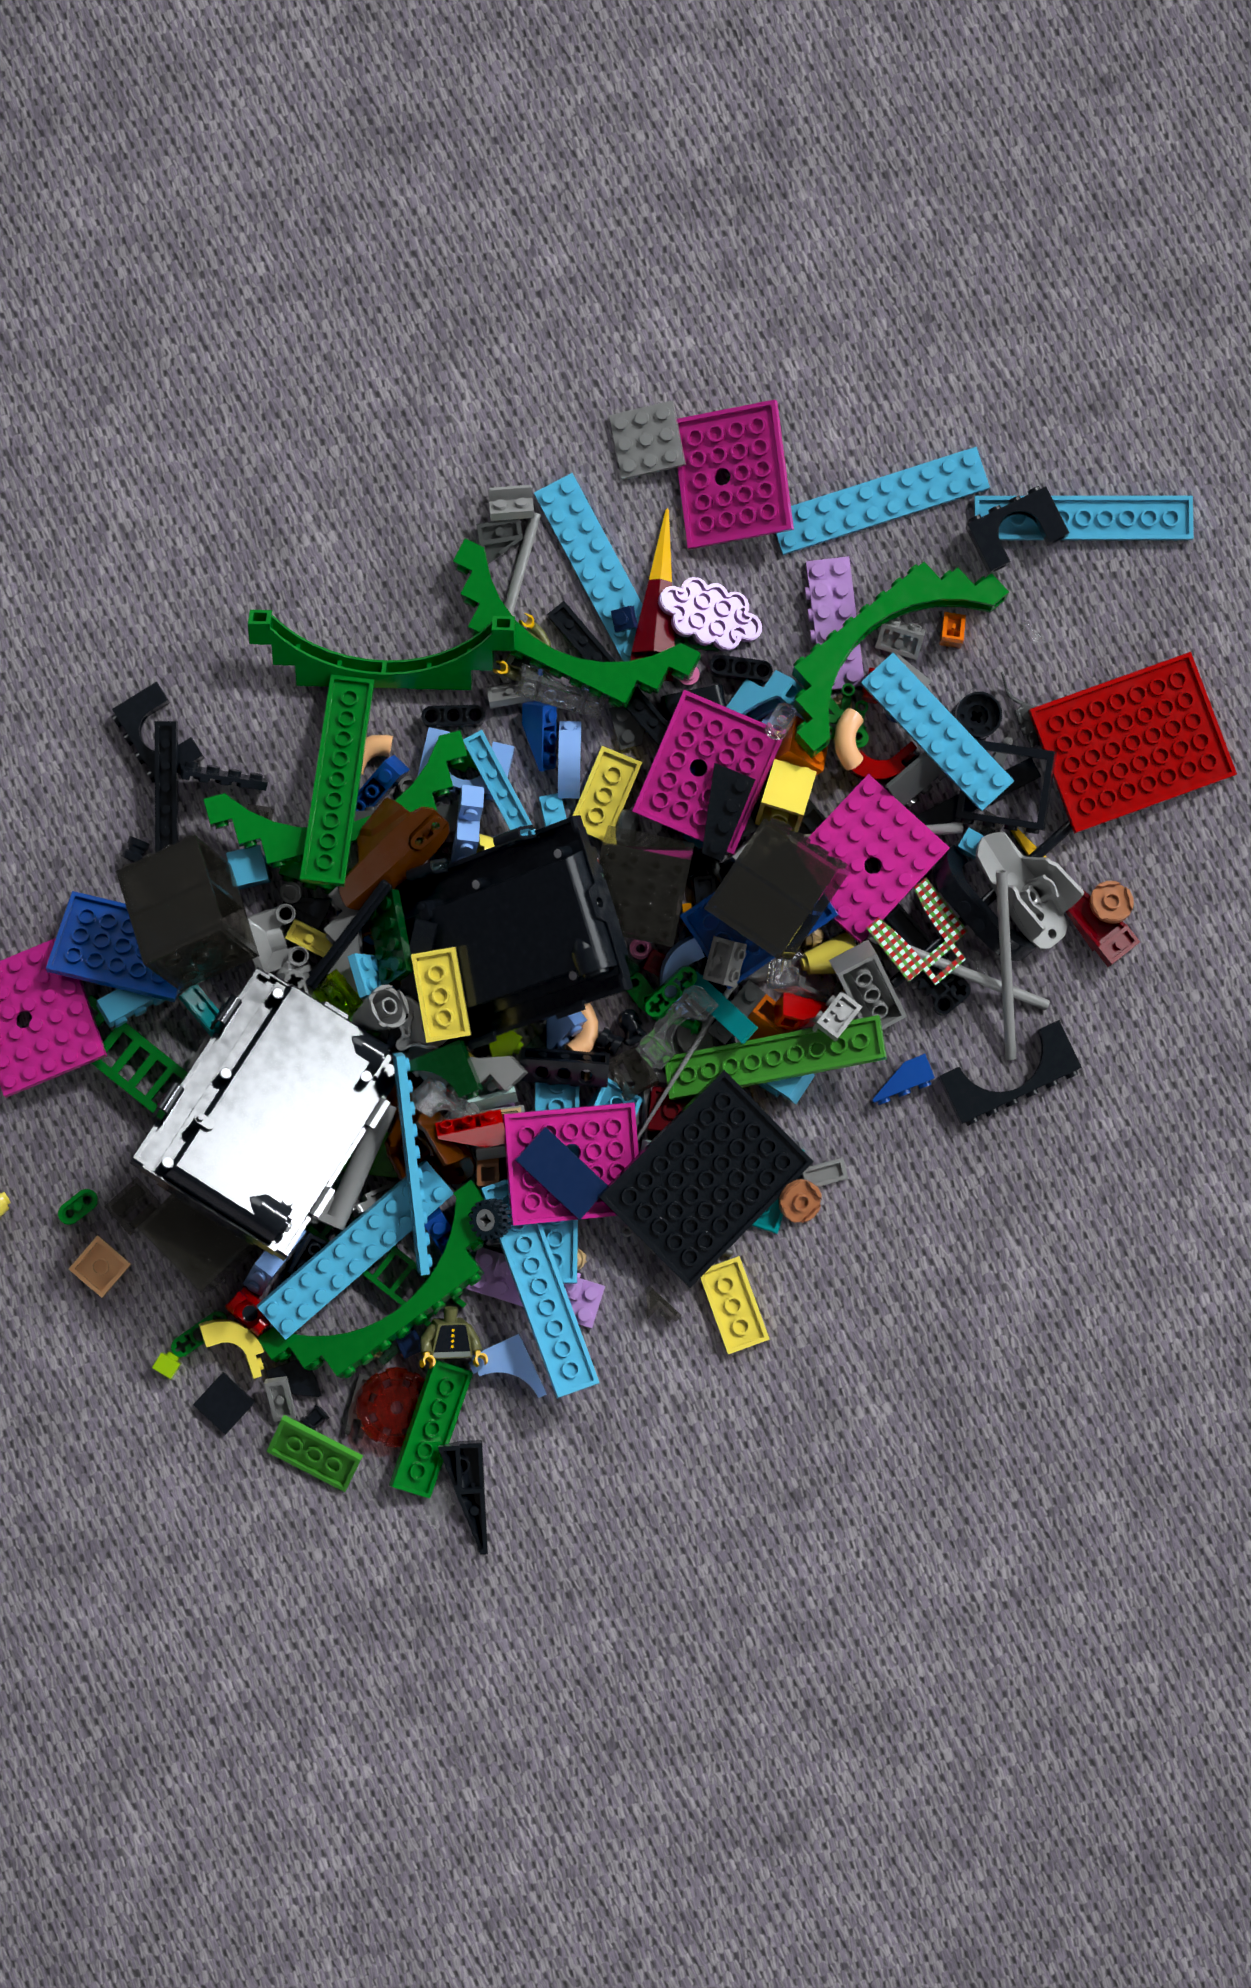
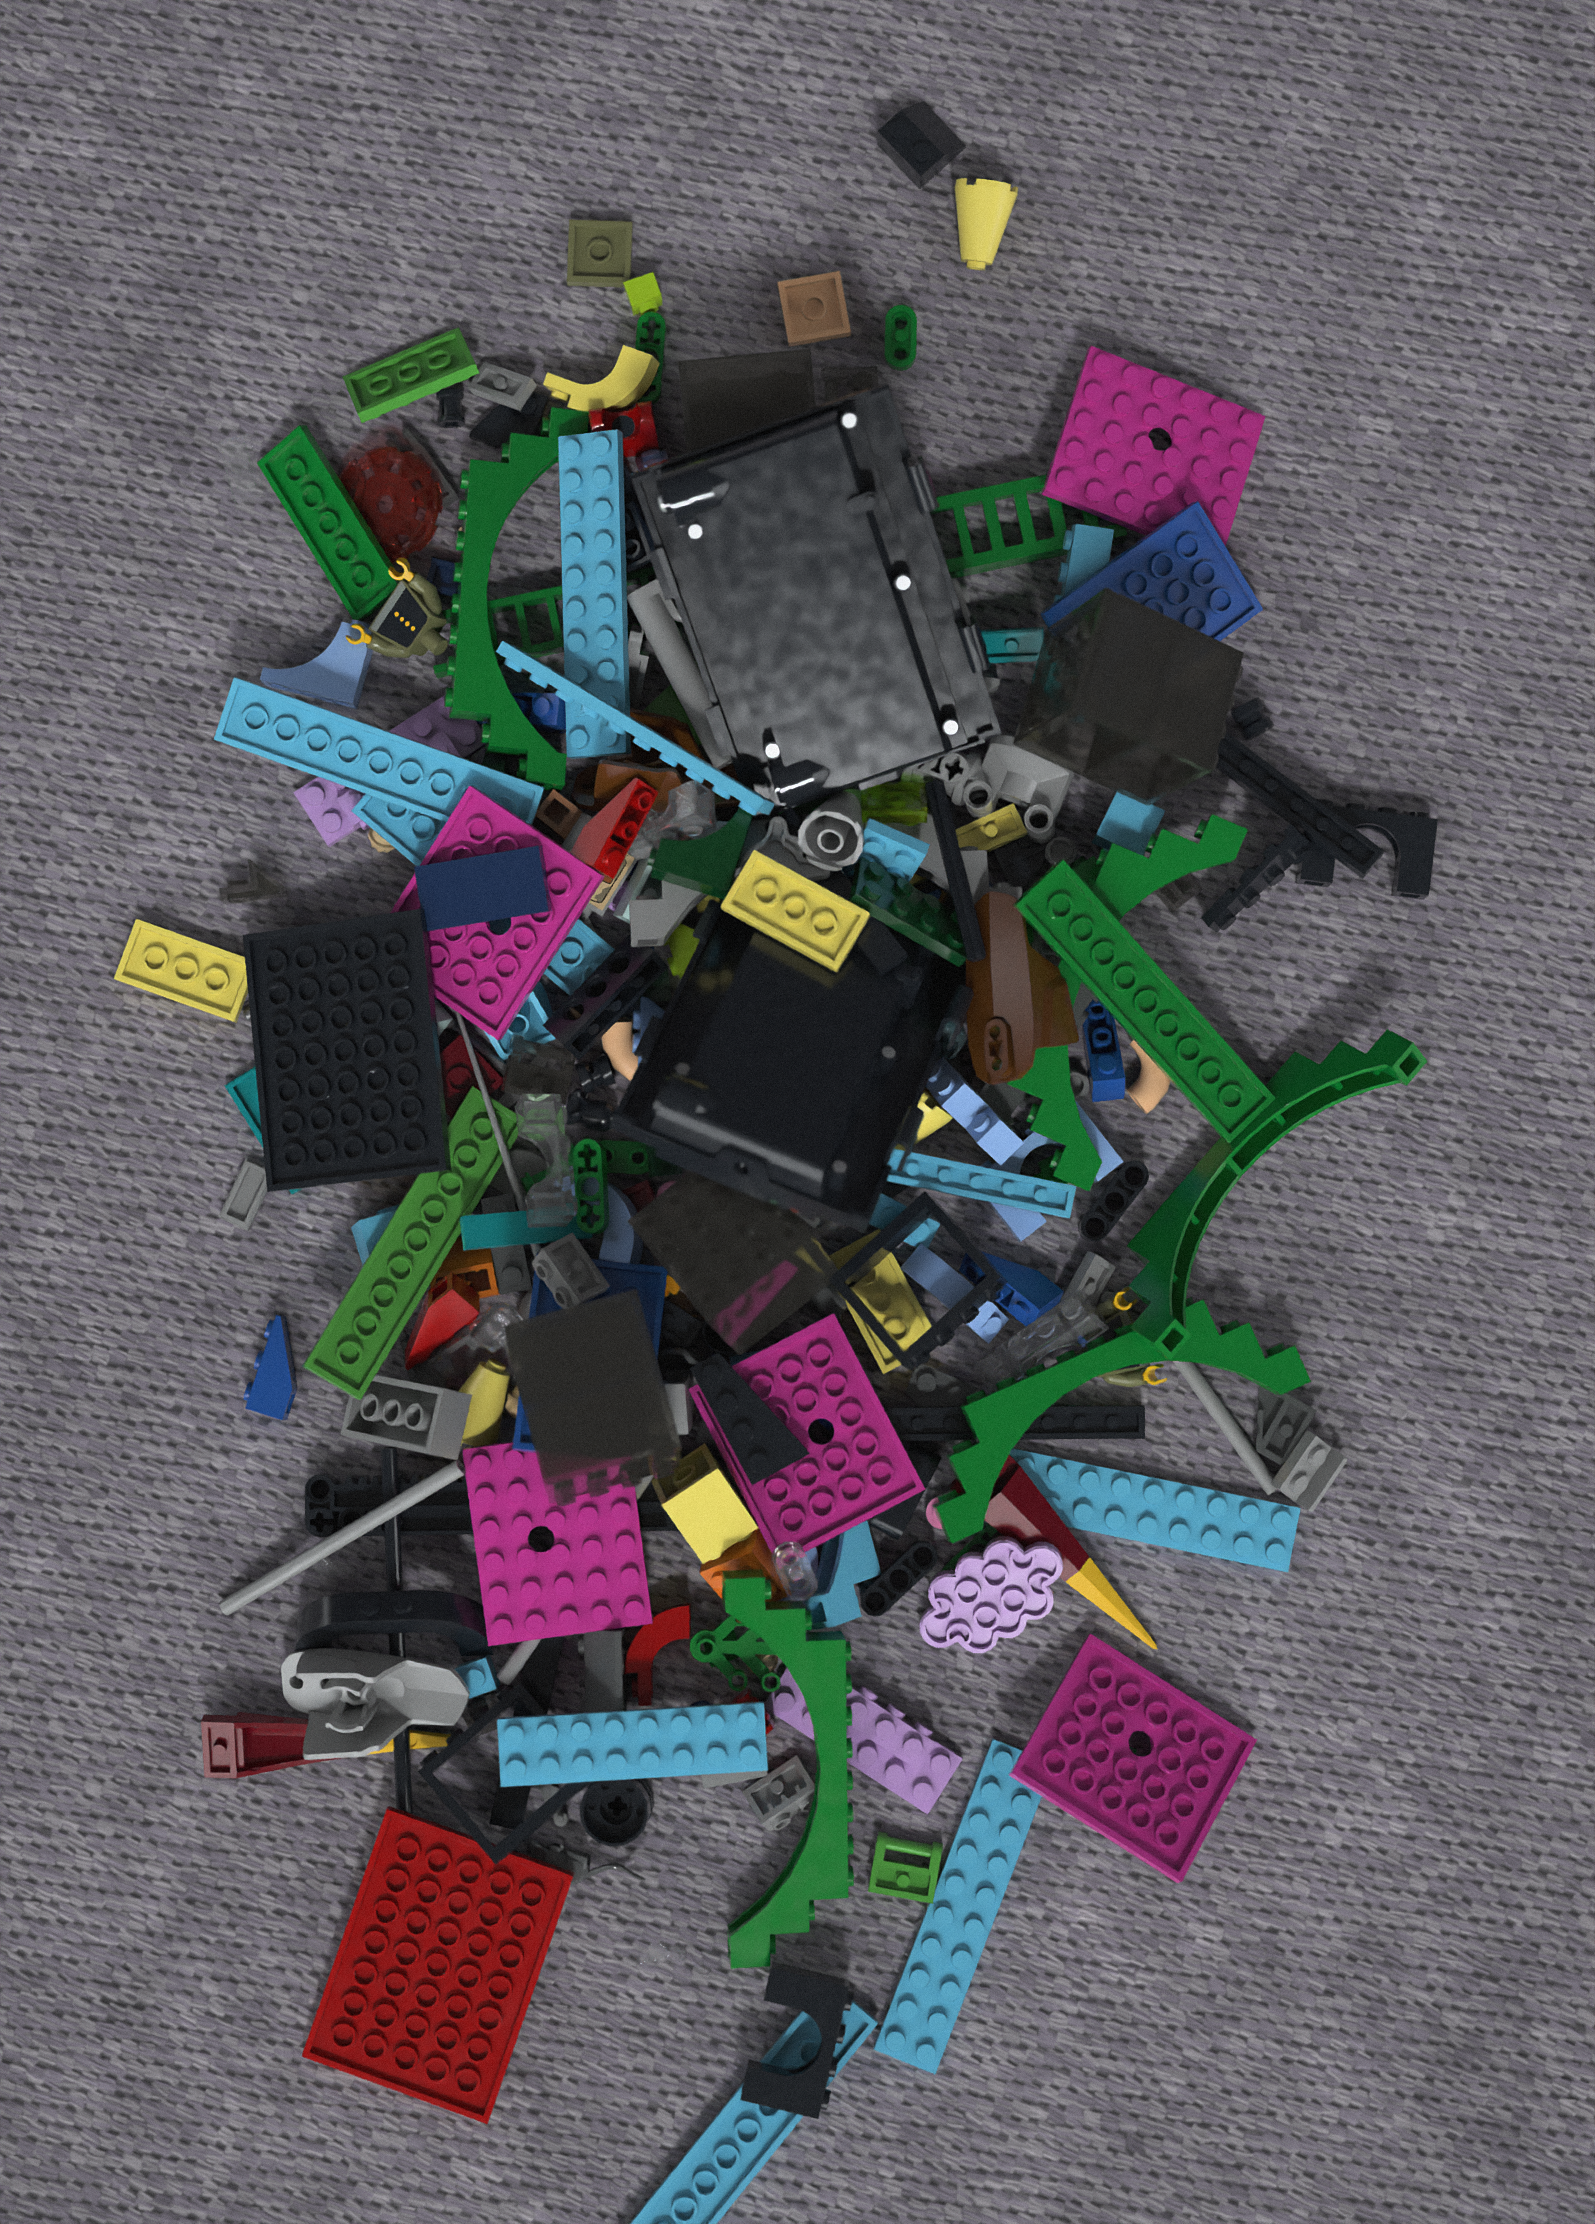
camera: 140 degrees right, 0 degrees up
(163, 1408) = (599, 253): none -> olive plate
(224, 1403) = (550, 325): black tile -> none
(389, 1354) = (449, 539): clear green tile -> none
(466, 1470) = (255, 527): black wedge -> none
(496, 1213) = (498, 766): black wheel -> none
(576, 742) = (882, 1245): none -> black window
(624, 619) = (1065, 1489): dark blue plate -> none
(647, 440) = (1255, 1692): light grey plate -> none
(800, 1201) = (237, 1140): nougat tile -> none
(837, 1016) = (399, 1350): light grey bracket -> none
(846, 739) = (714, 1630): light nougat cylinder -> none
(892, 543) = (903, 1878): none -> bright green plate
(900, 951) = (407, 1486): piece -> none
(952, 630) = (742, 1864): orange slope -> none
(1006, 964) = (300, 1598): light grey piece -> none
(1055, 1062) = (149, 1561): black arch -> none
(1111, 902) = (277, 1782): nougat tile -> none

